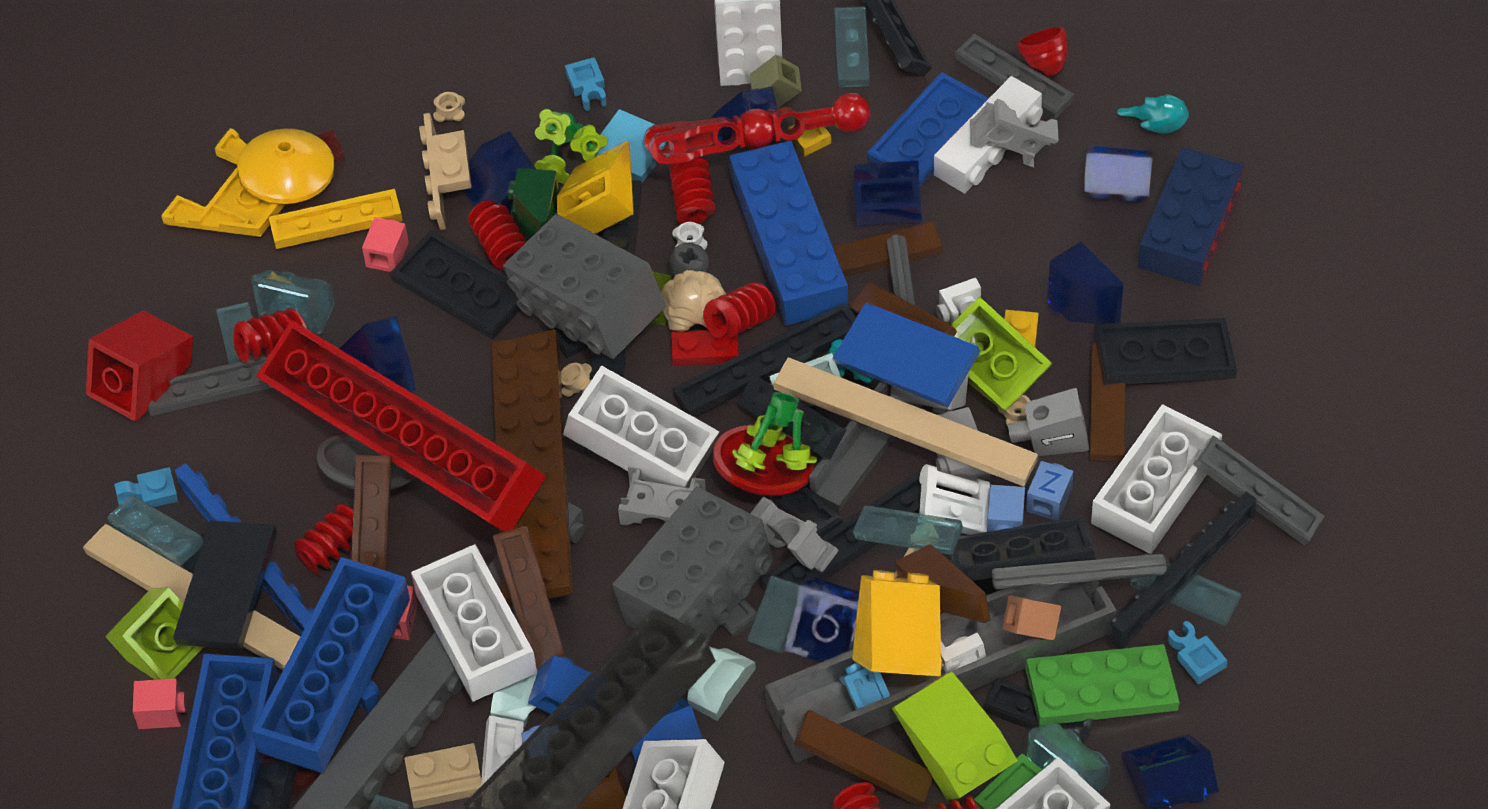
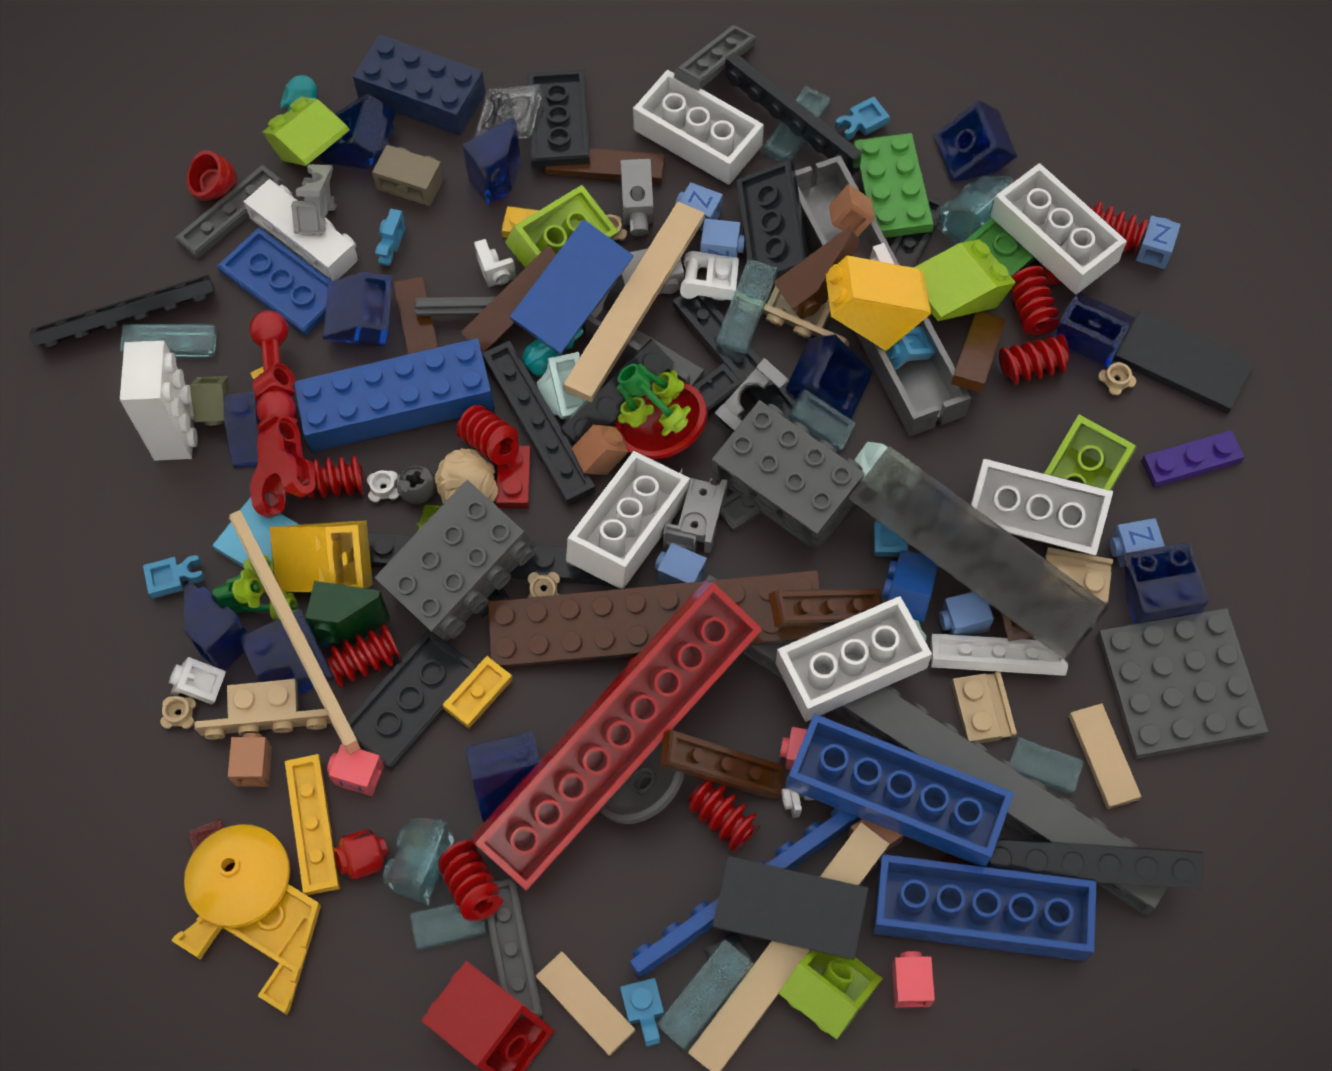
camera: 90 degrees left, 10 degrees up
(158, 443) = (585, 1004): none -> tan tile
(303, 255) = (360, 854): none -> red head
(397, 164) = (250, 761): none -> nougat brick
(463, 333) = (477, 692): none -> yellow plate
(477, 114) = (197, 680): none -> white bracket
(505, 163) = (294, 633): none -> tan tile
(517, 106) = (211, 628): none -> clear blue slope
(596, 493) = (680, 566): none -> medium blue brick
(728, 409) = (600, 450): none -> nougat brick
(988, 211) = (391, 231): none -> dark azure plate
(1069, 217) = (408, 175): none -> dark tan brick
(1079, 571) = (807, 175): dark grey axle -> none
(1107, 116) = (304, 131): none -> lime slope
(1162, 302) = (510, 102): none -> clear tile

